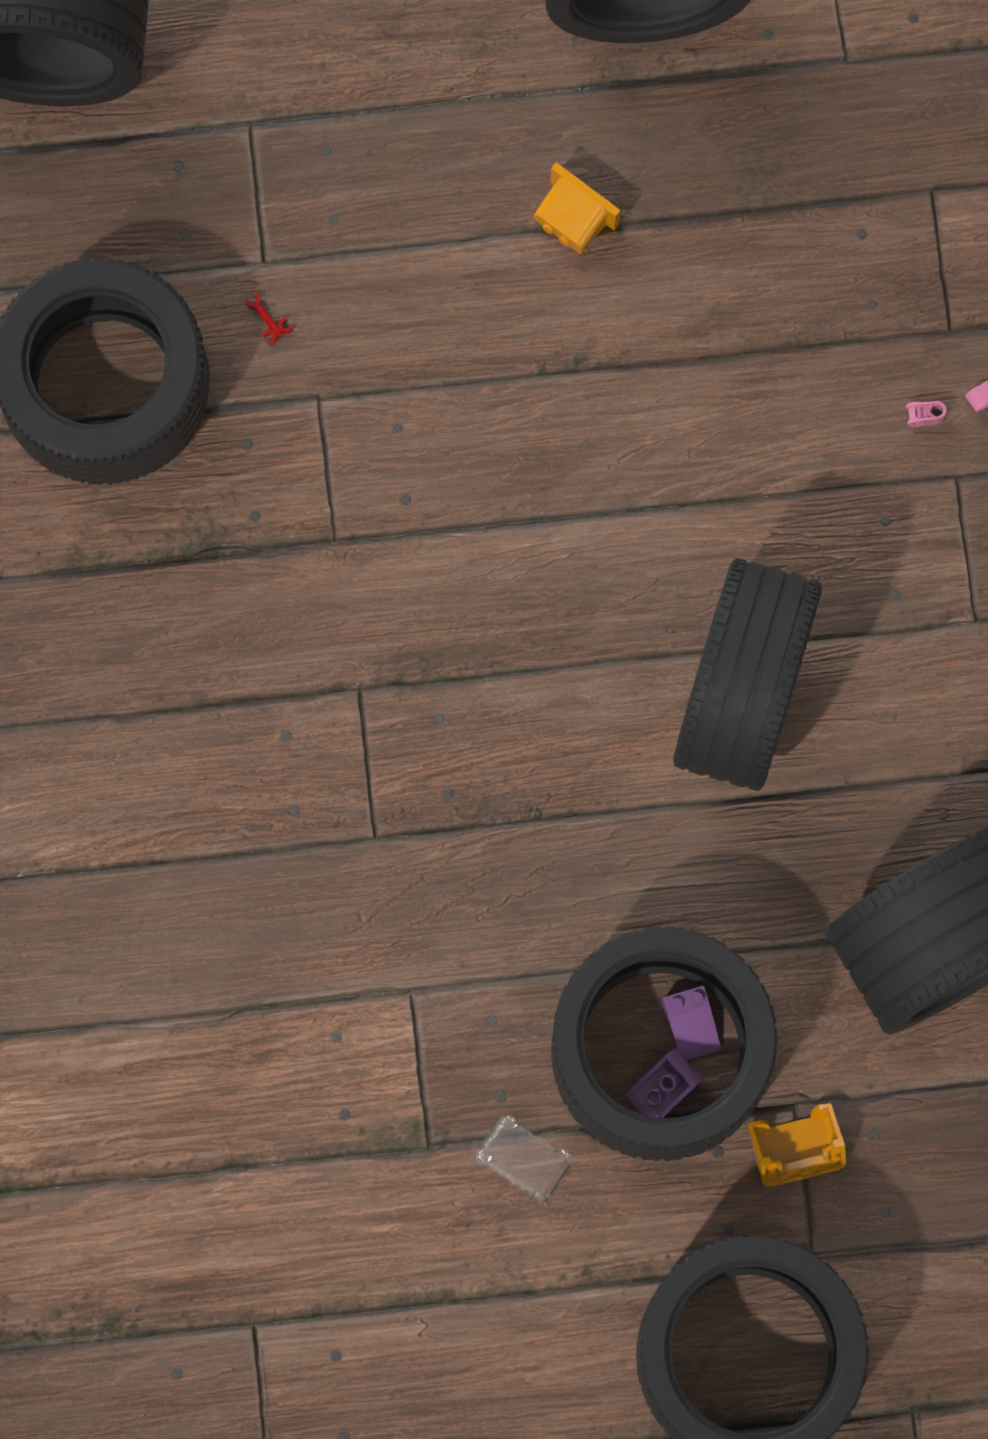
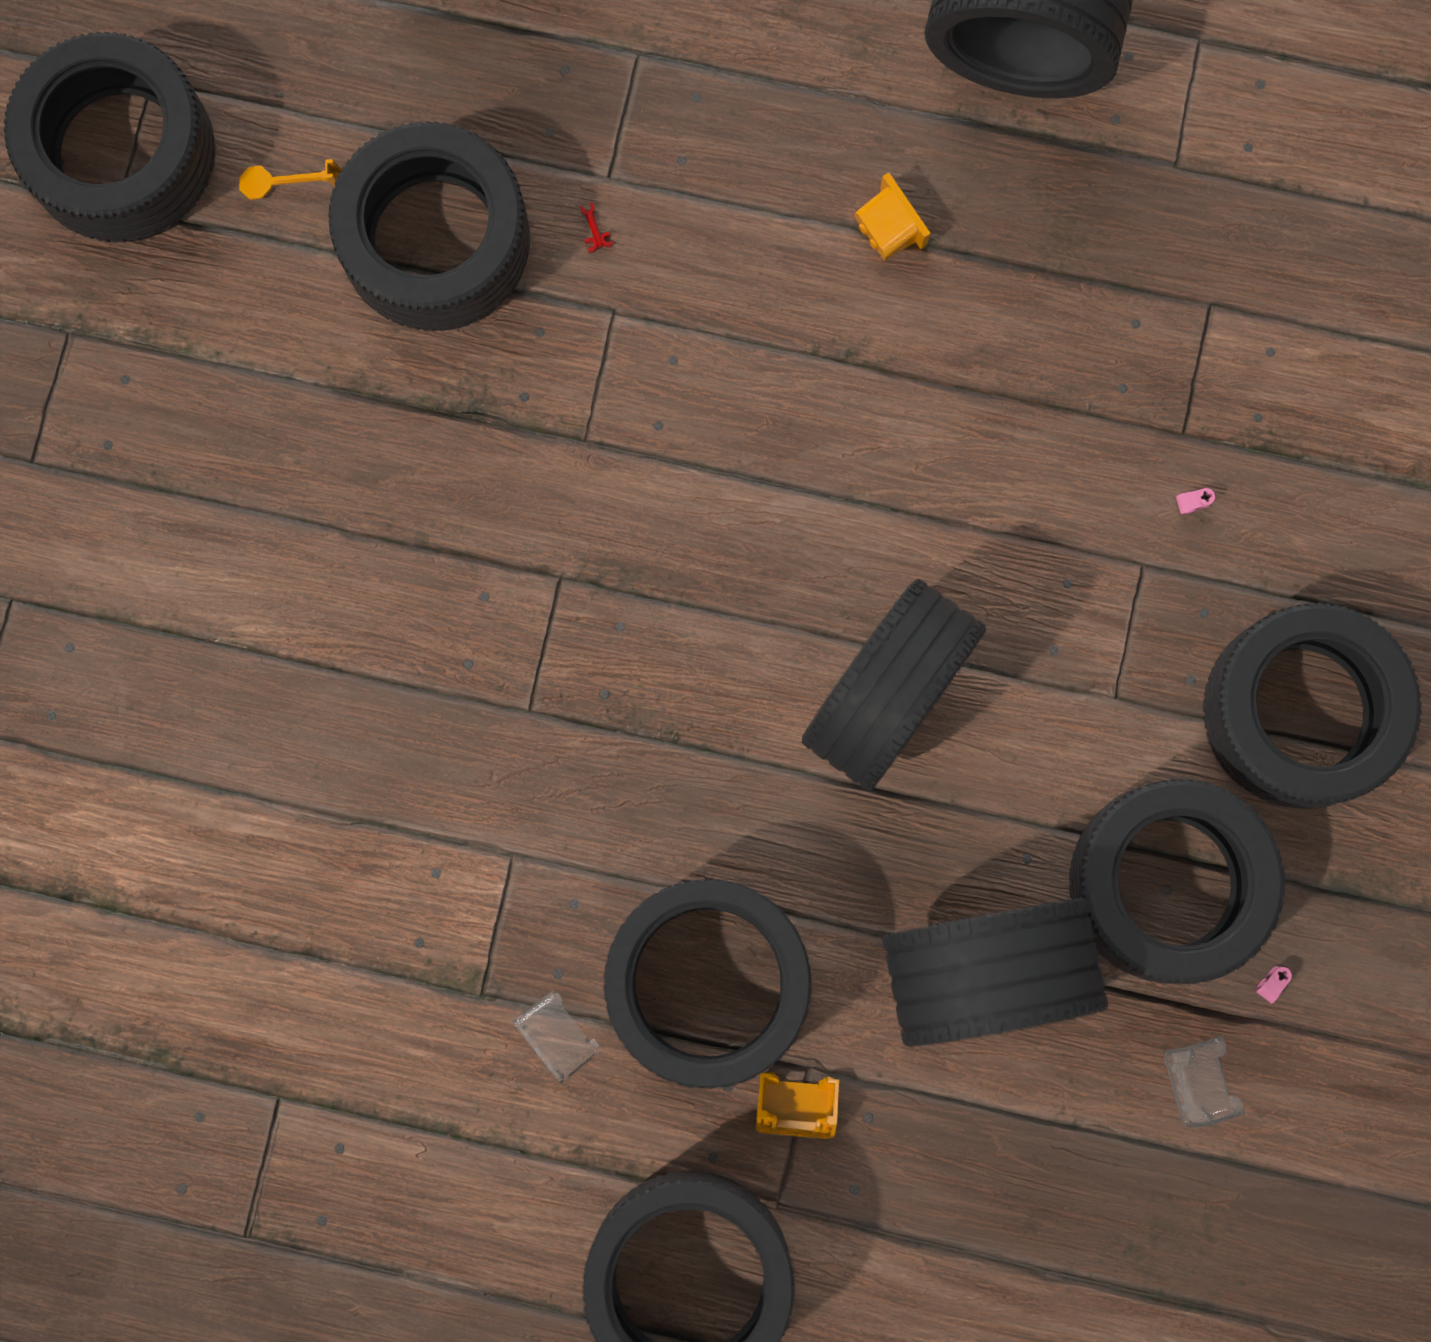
camera: 20 degrees right, 5 degrees up
(664, 1086) = (700, 1015): medium lavender slope -> none
(691, 1023) = (743, 968): medium lavender slope -> none
(924, 414) = (1134, 500): bright pink piece -> none

